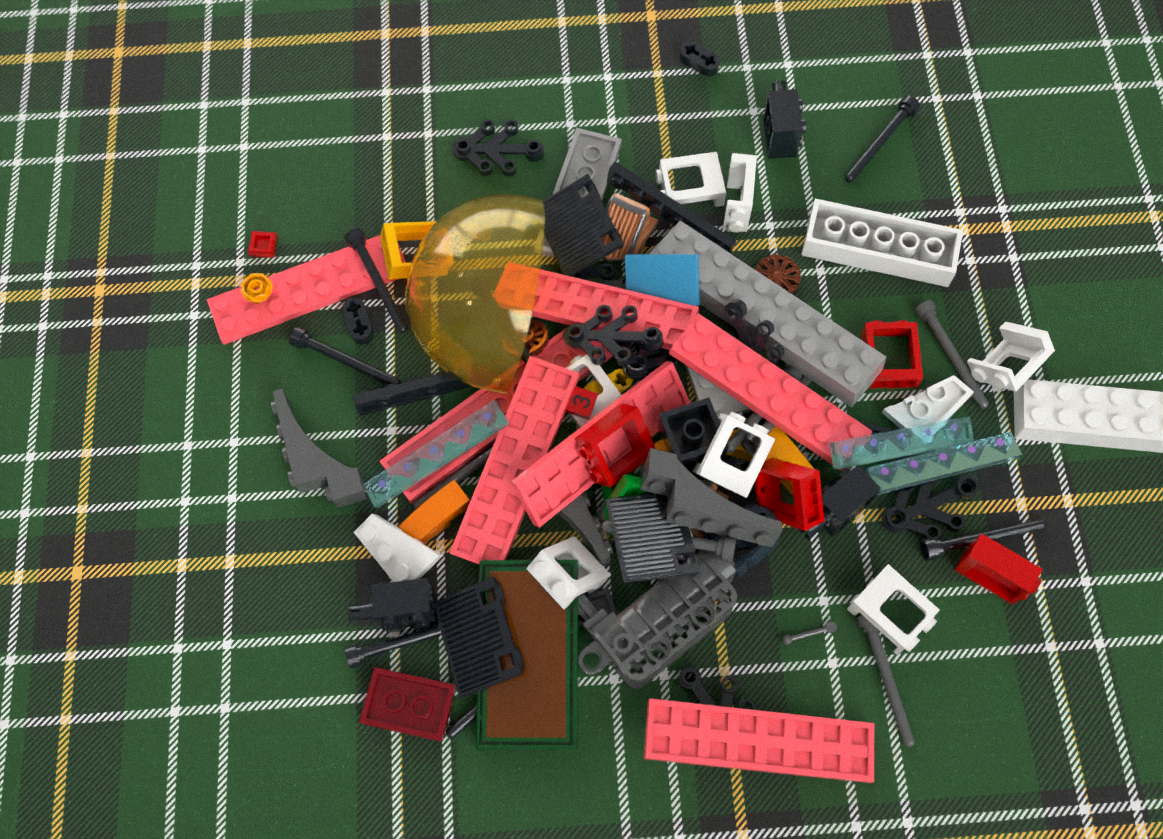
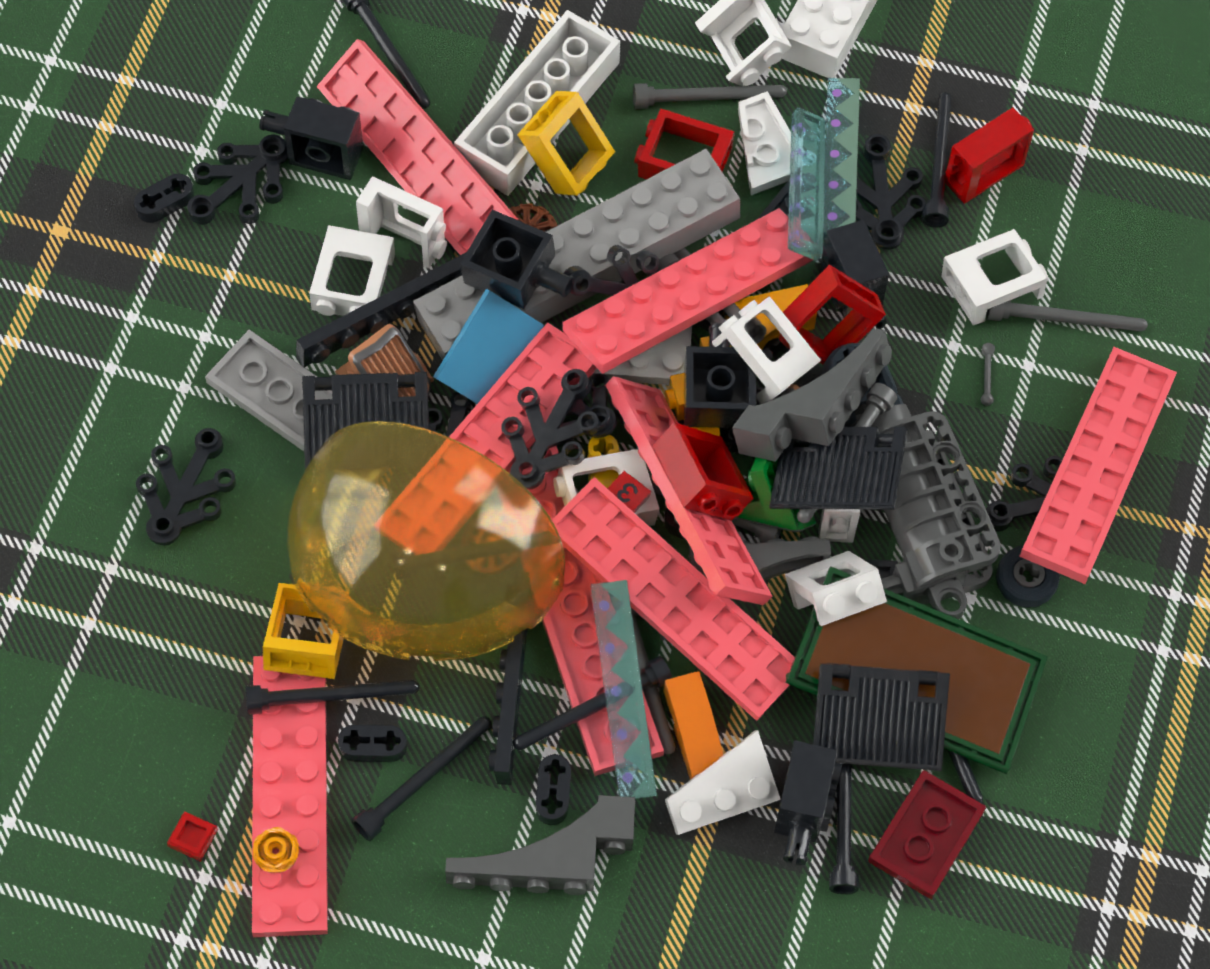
camera: 75 degrees left, 5 degrees down
(362, 442) = (561, 790): none -> black beam
(462, 473) = (652, 675): none -> black piece
(633, 709) = (1017, 589): none -> black bush
(725, 260) = (512, 261): none -> black brick
(735, 96) = (240, 176): none -> black plant
(801, 184) = (411, 144): none -> coral plate
(859, 247) = (546, 123): none -> yellow window

